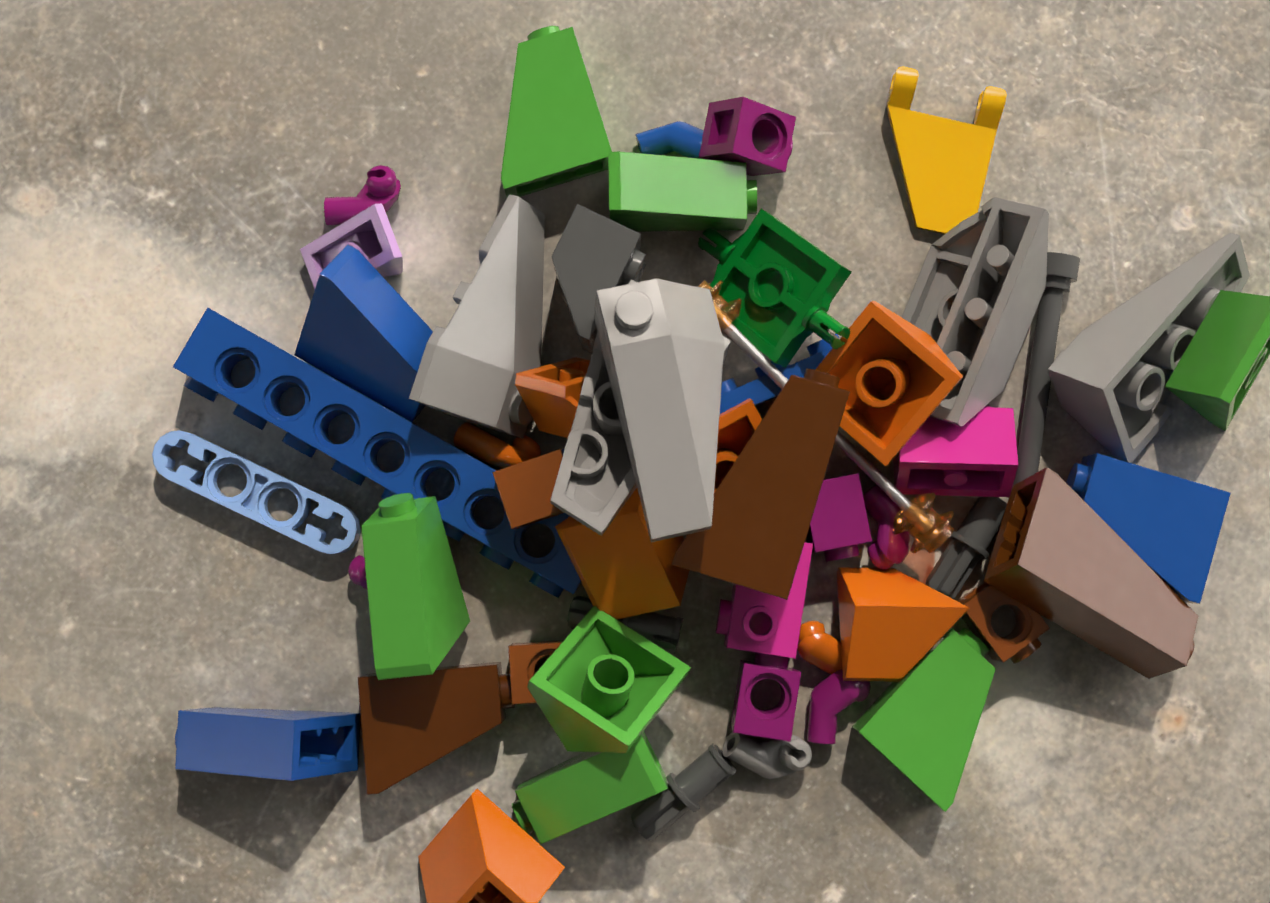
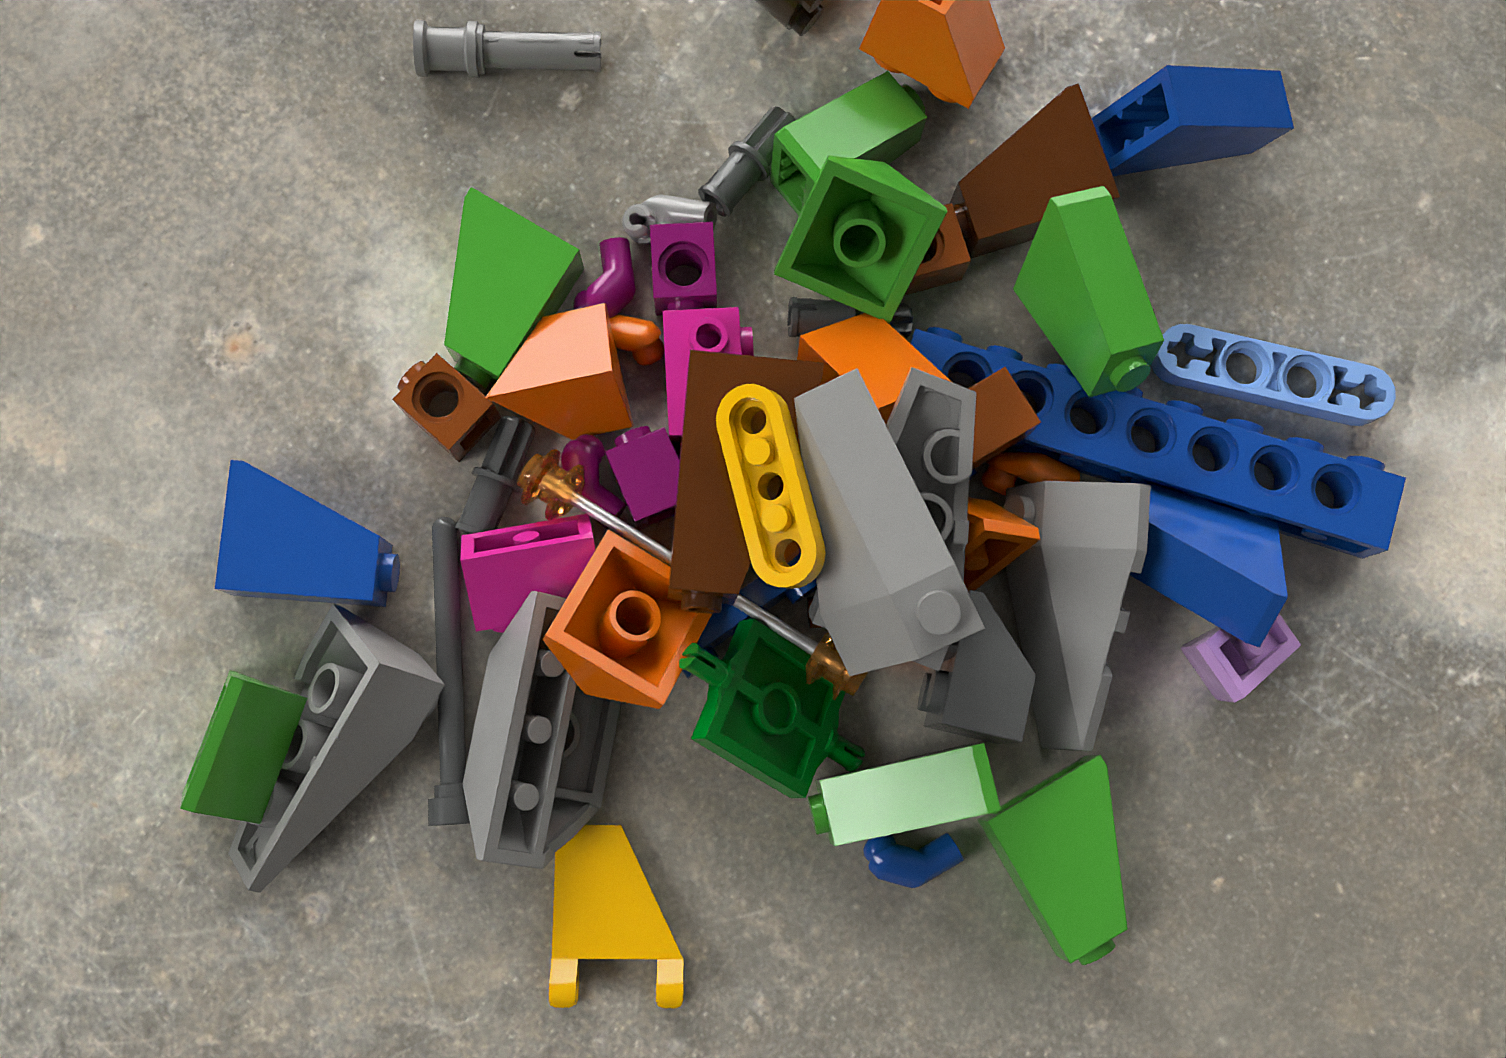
camera: 160 degrees right, 5 degrees down
(379, 188) = (1234, 721): magenta arm -> none
(748, 134) = (860, 875): magenta brick -> none
(758, 431) = (751, 465): none -> yellow plate
(1087, 579) = (363, 461): slope -> none

